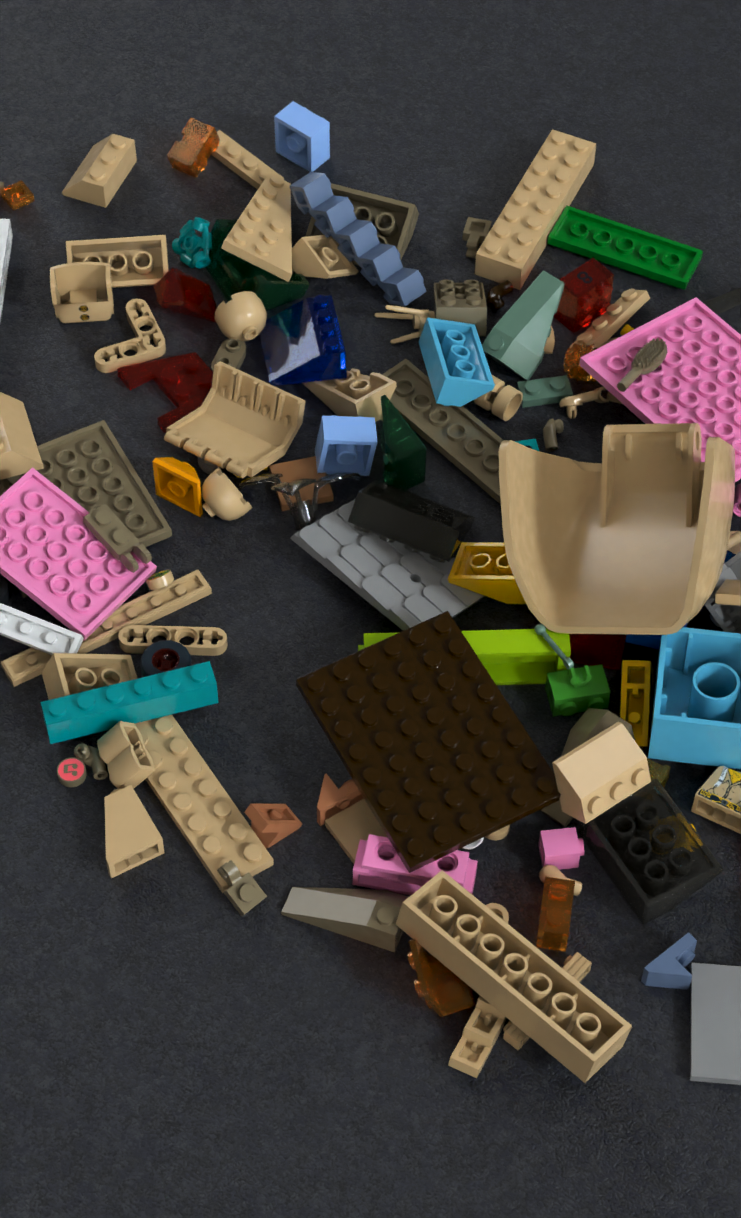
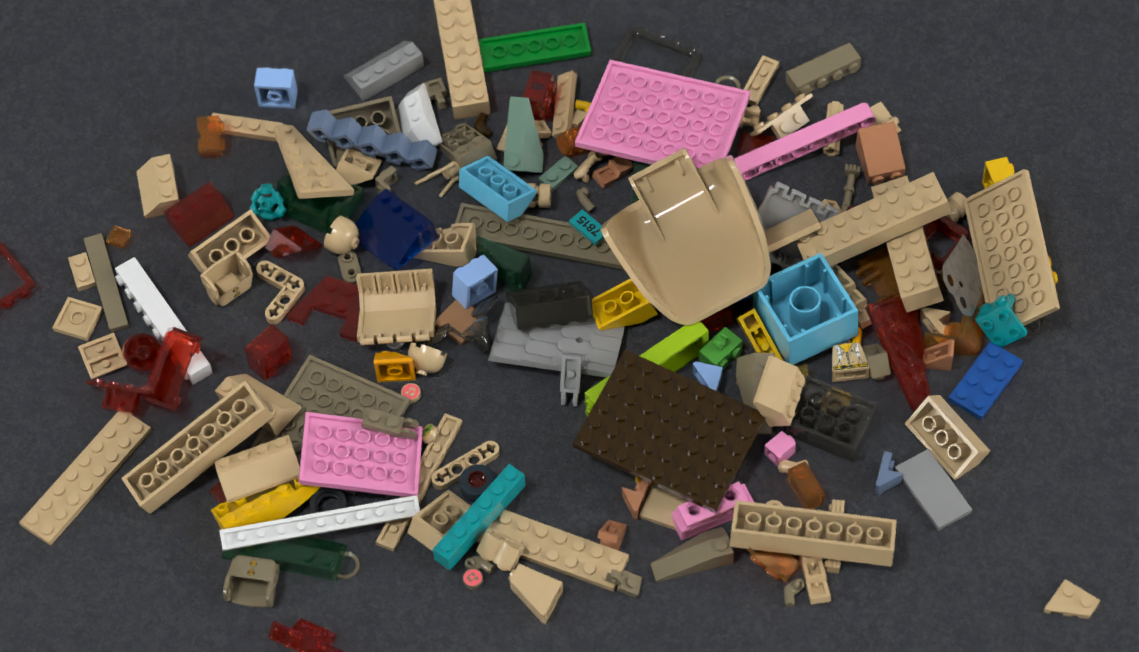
camera: 30 degrees left, 5 degrees up
(59, 390) = (268, 352): none -> clear red brick
(115, 213) = (198, 214): none -> clear red slope
(181, 525) = (411, 391): none -> tile
(344, 291) = (386, 179): none -> dark tan bracket
(366, 610) = (570, 377): none -> light grey hinge
(433, 246) = (417, 117): none -> white wedge
(438, 1032) = (791, 590): none -> dark tan arm
(439, 185) = (385, 70): none -> light grey slope
(541, 712) = (708, 375): none -> light blue slope
(560, 332) = (543, 129): none -> tan plate
(567, 661) = (713, 338): sand green hinge -> none
(595, 421) = (614, 171): none -> nougat slope
(645, 362) = (615, 122): dark tan piece -> none

